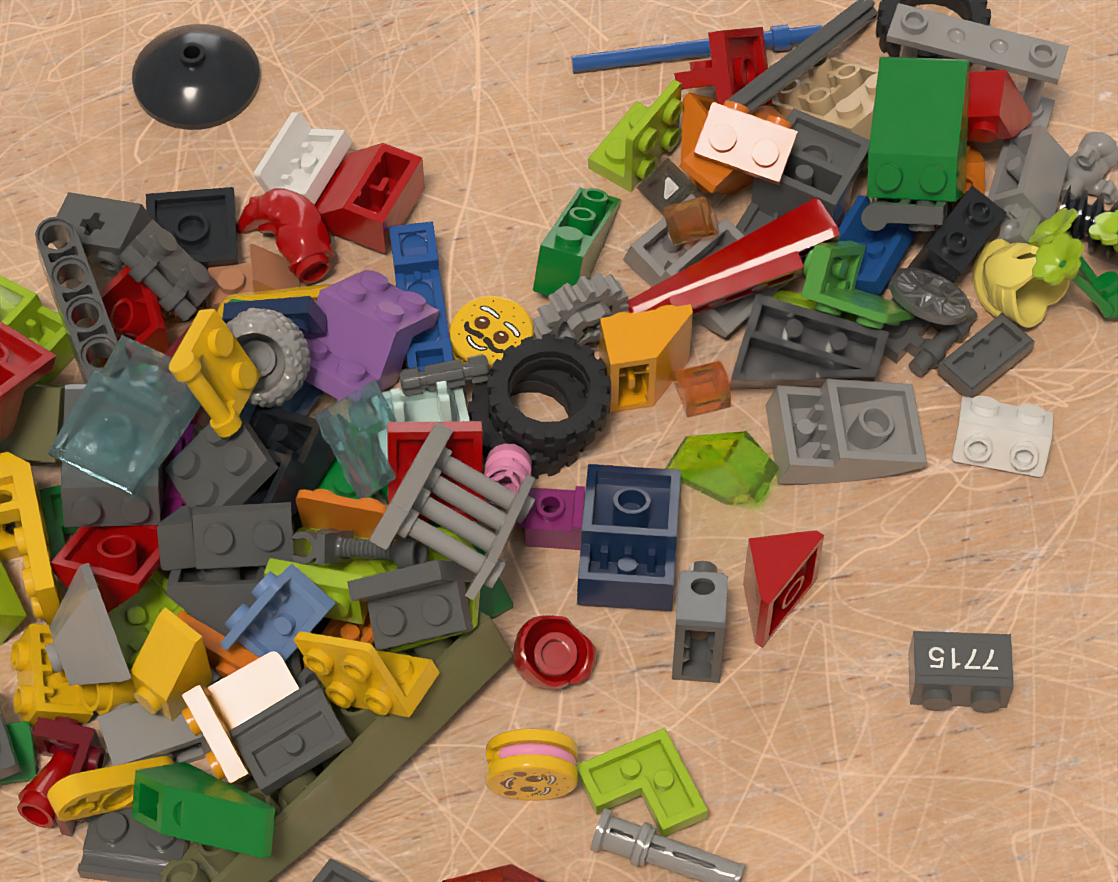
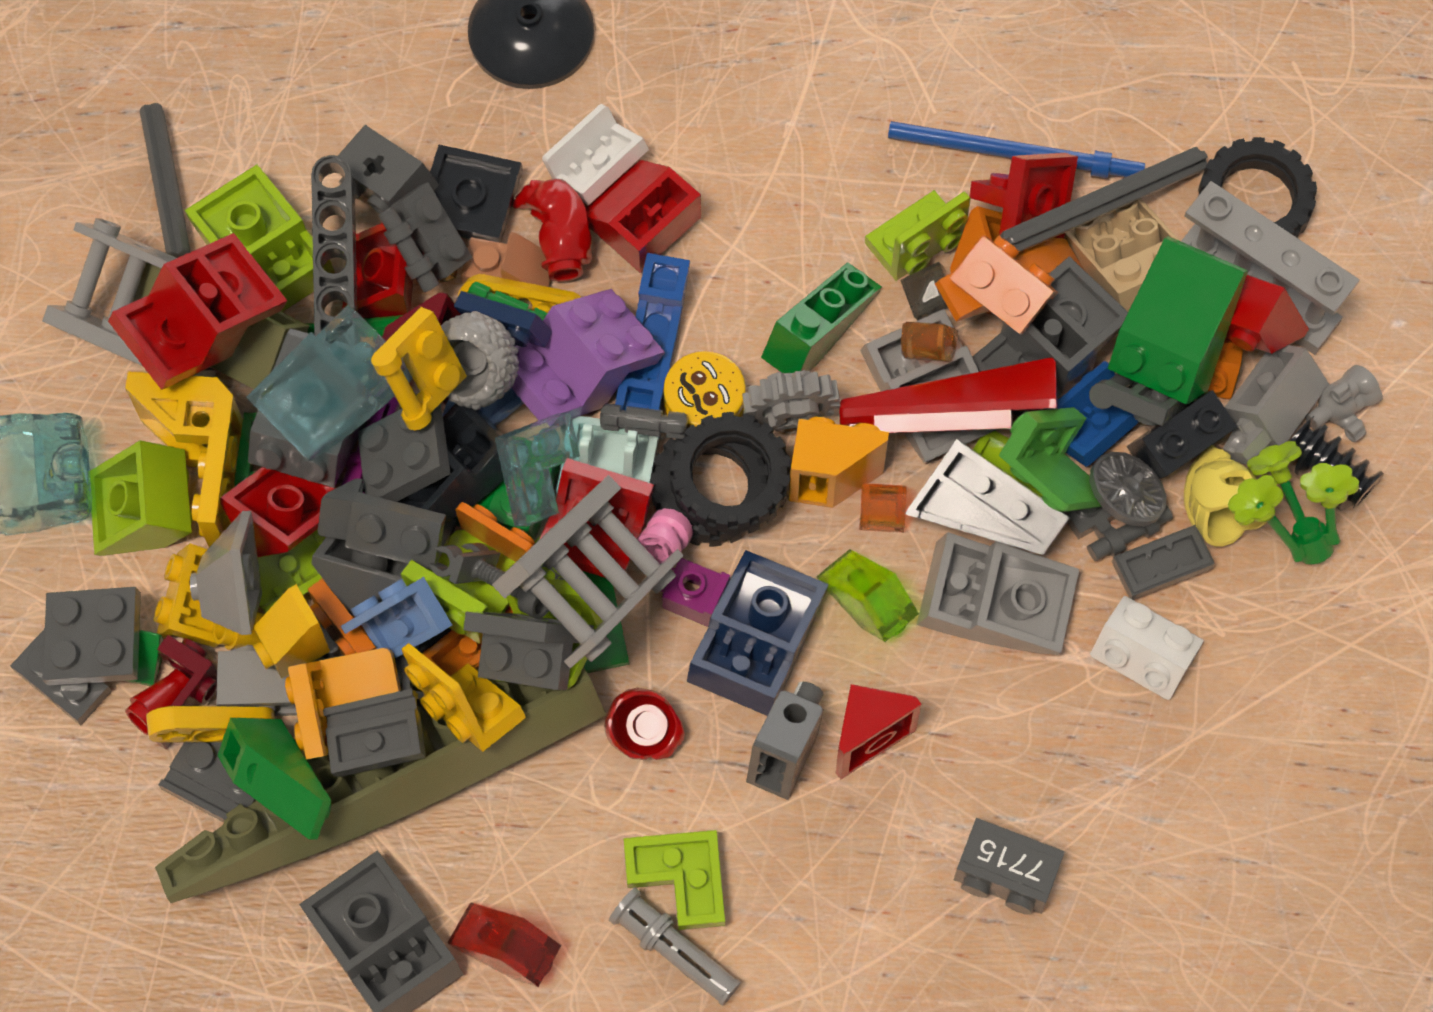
camera: 20 degrees right, 10 degrees up
(531, 764) = (582, 826): yellow head -> none

